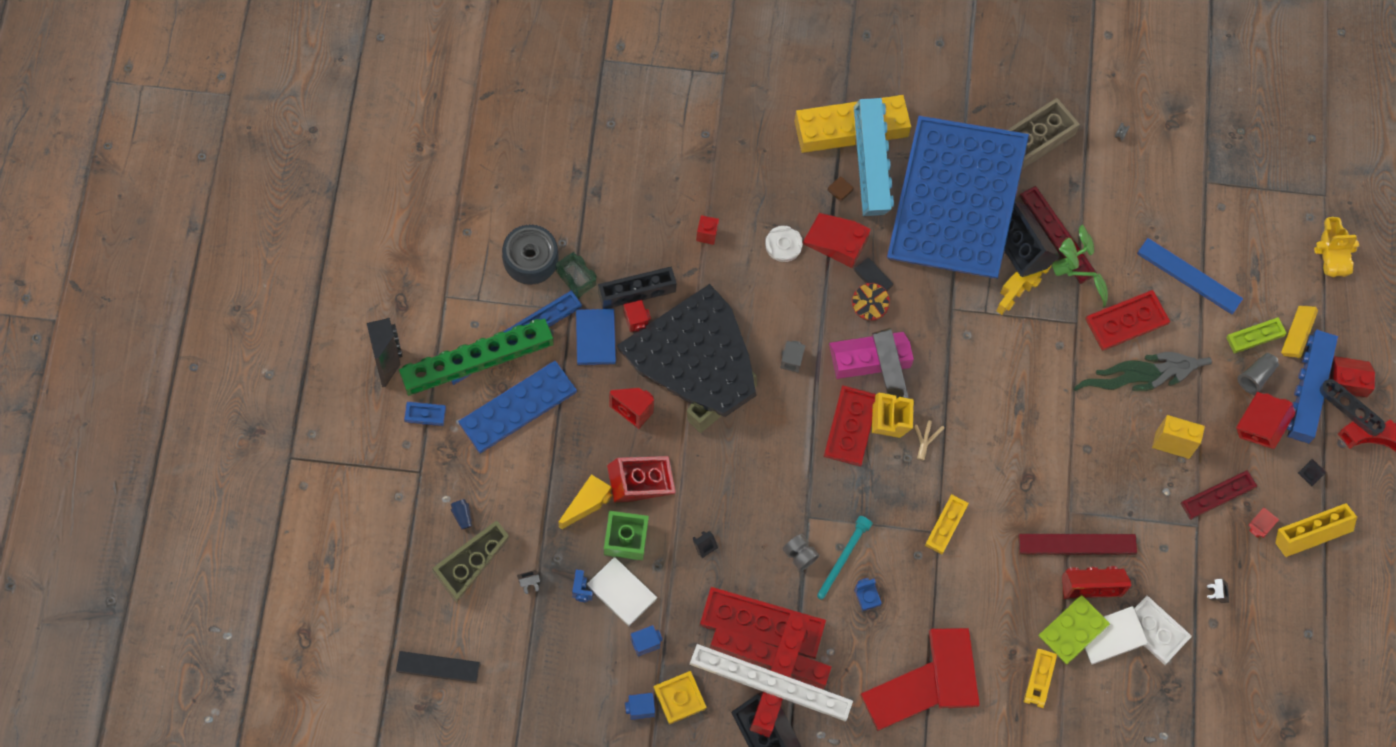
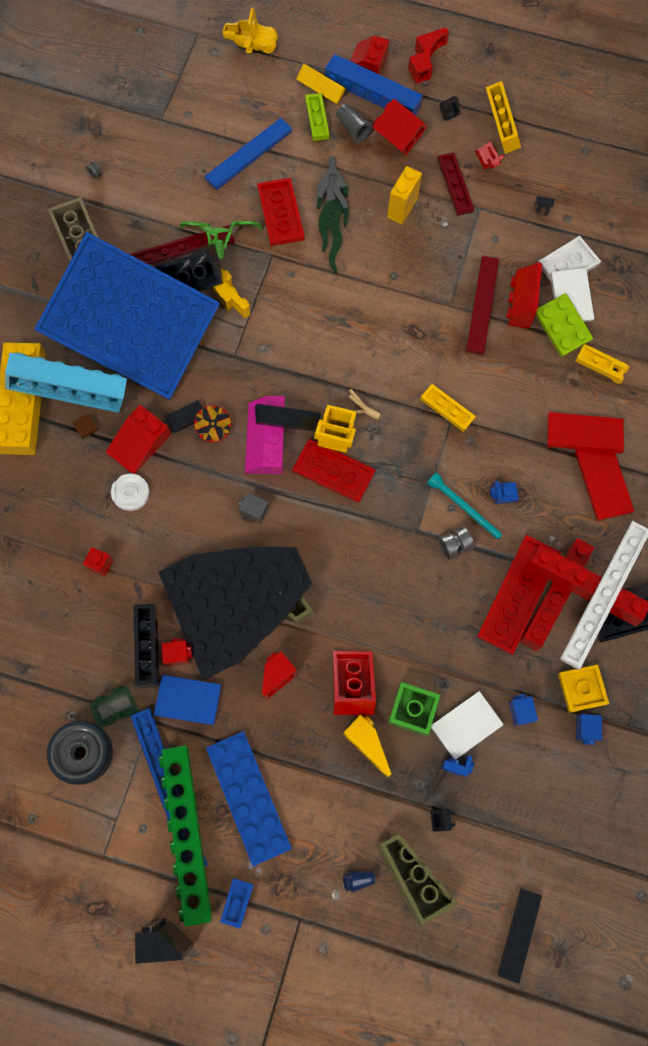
camera: 75 degrees left, 5 degrees up
(705, 544) = (432, 631): black tile -> none
(1354, 404) = (414, 49): black beam -> none

